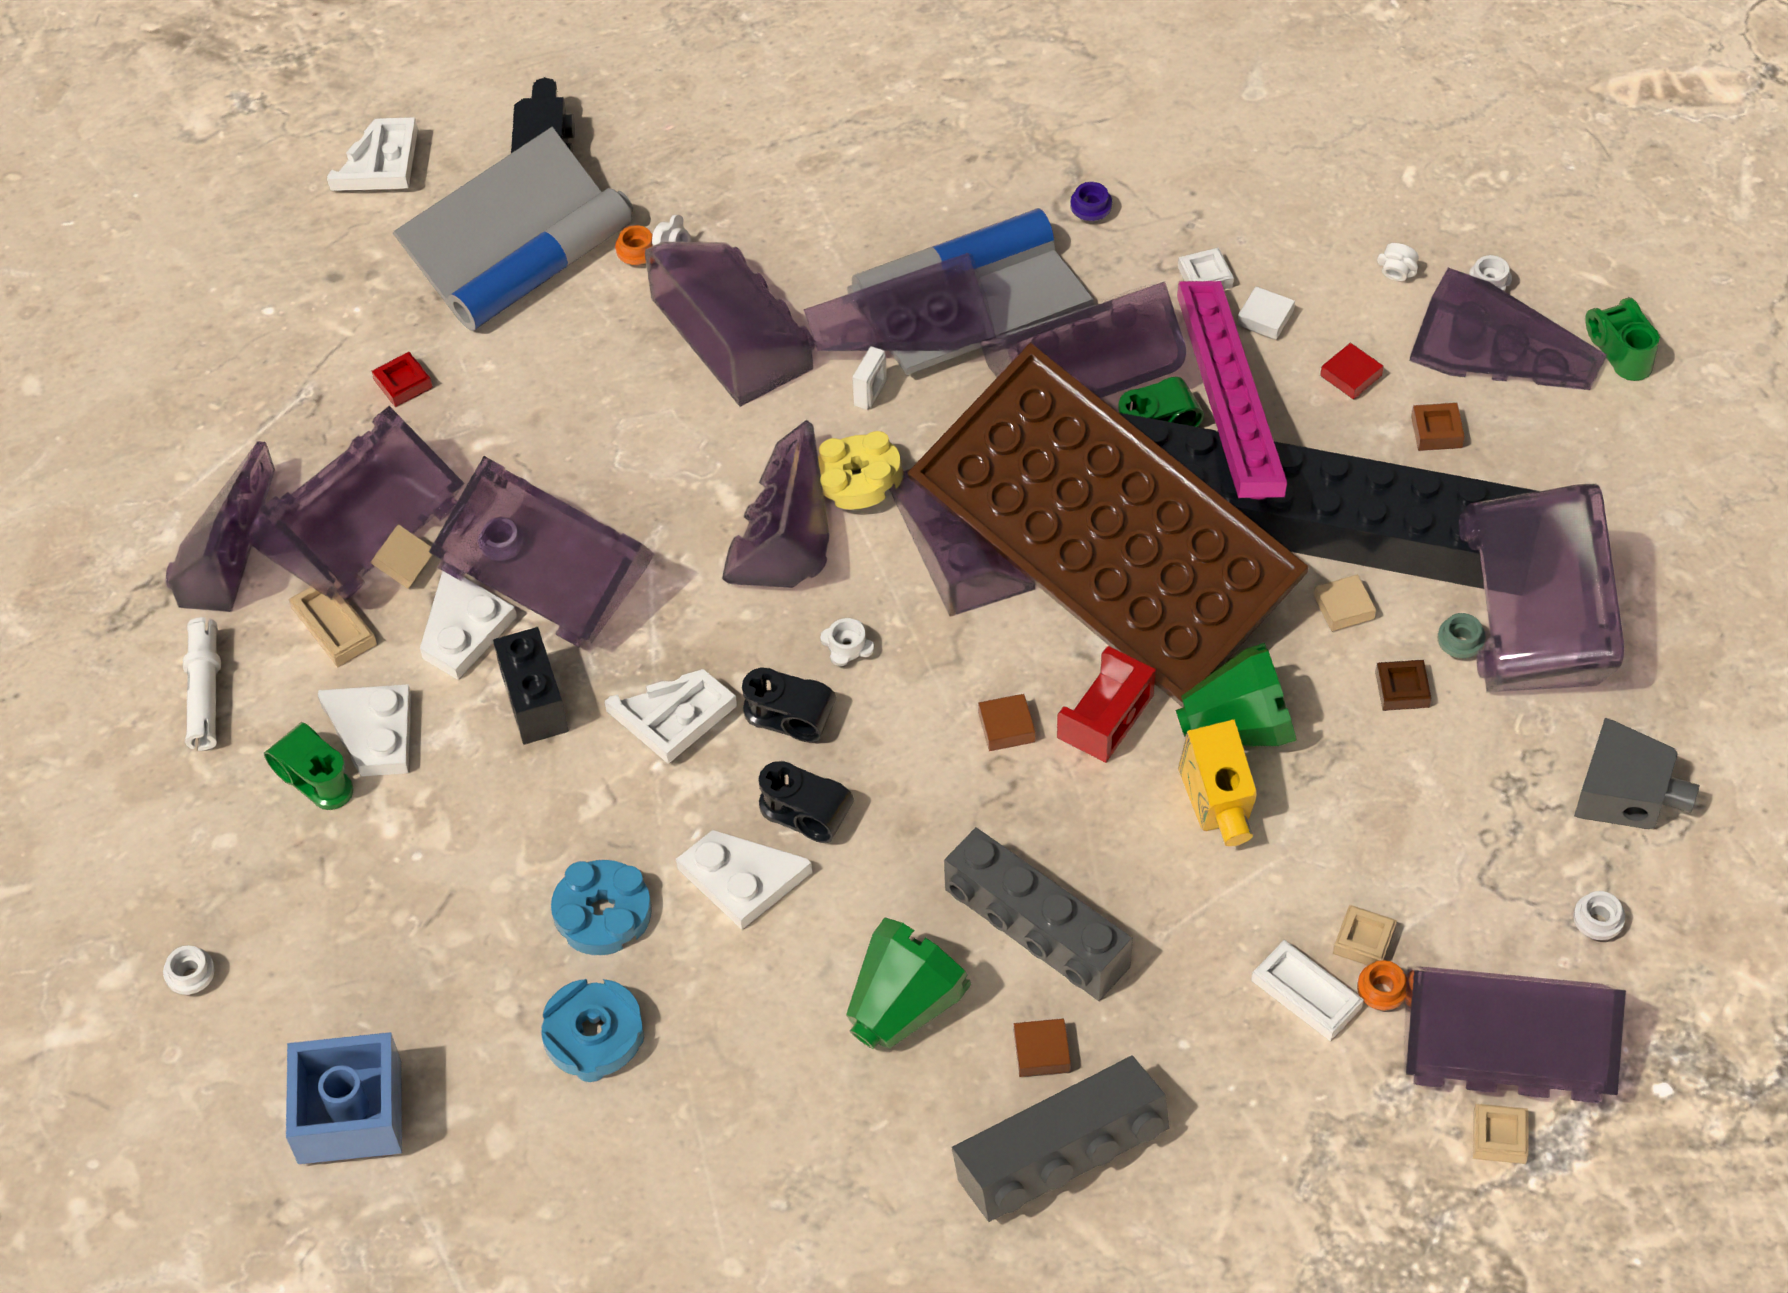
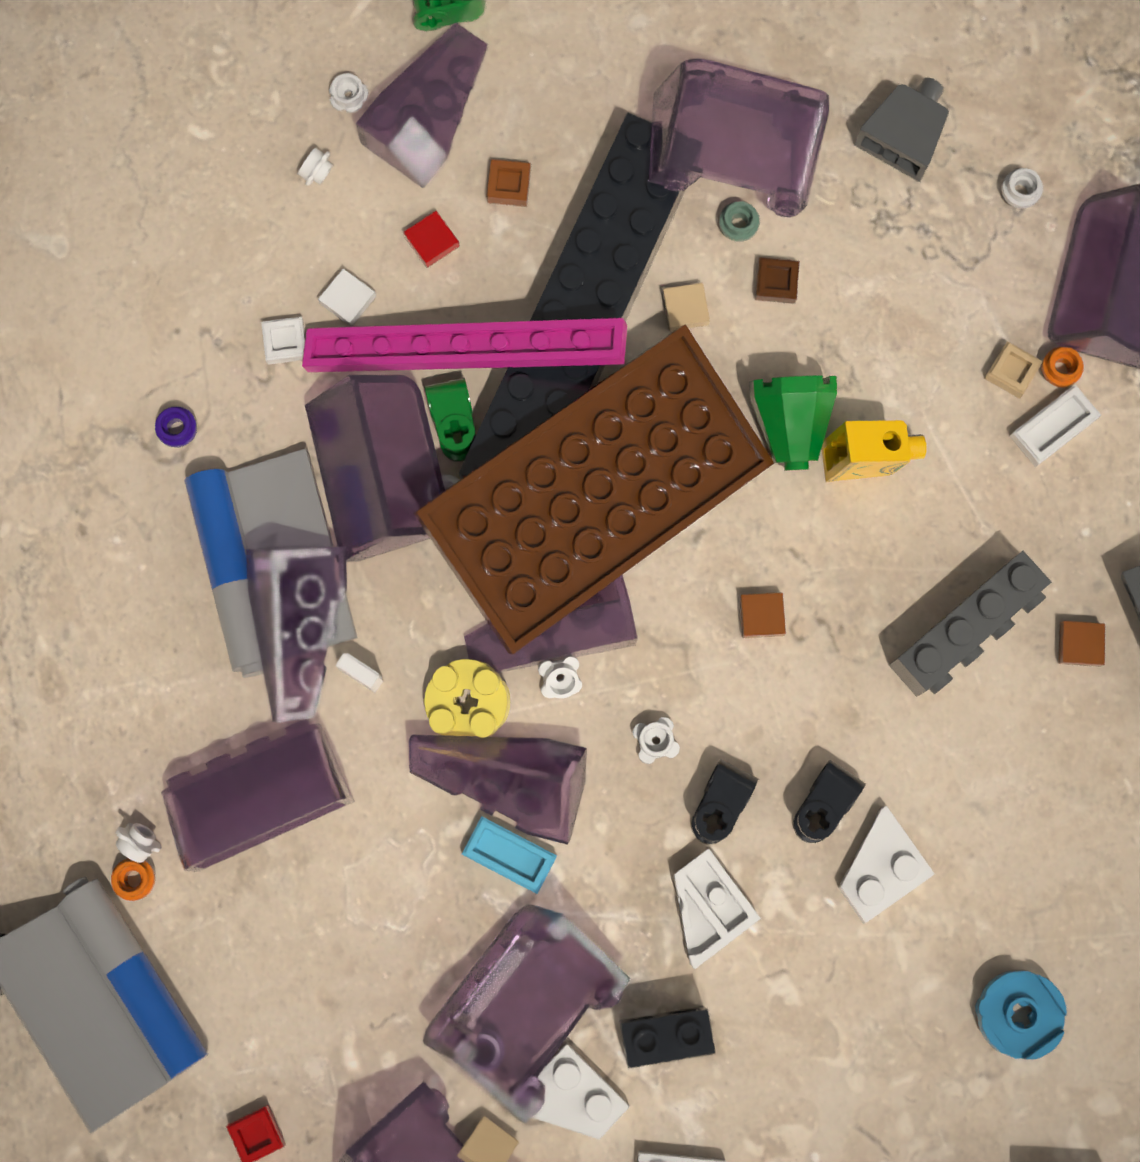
camera: 85 degrees left, 25 degrees up
(596, 881) = (877, 1008): dark azure plate -> none
(704, 536) = (509, 855): none -> medium azure tile
(889, 540) = (560, 688): none -> white plate
(902, 986) = (1029, 745): green cone -> none
(1108, 705) = (766, 526): red panel -> none

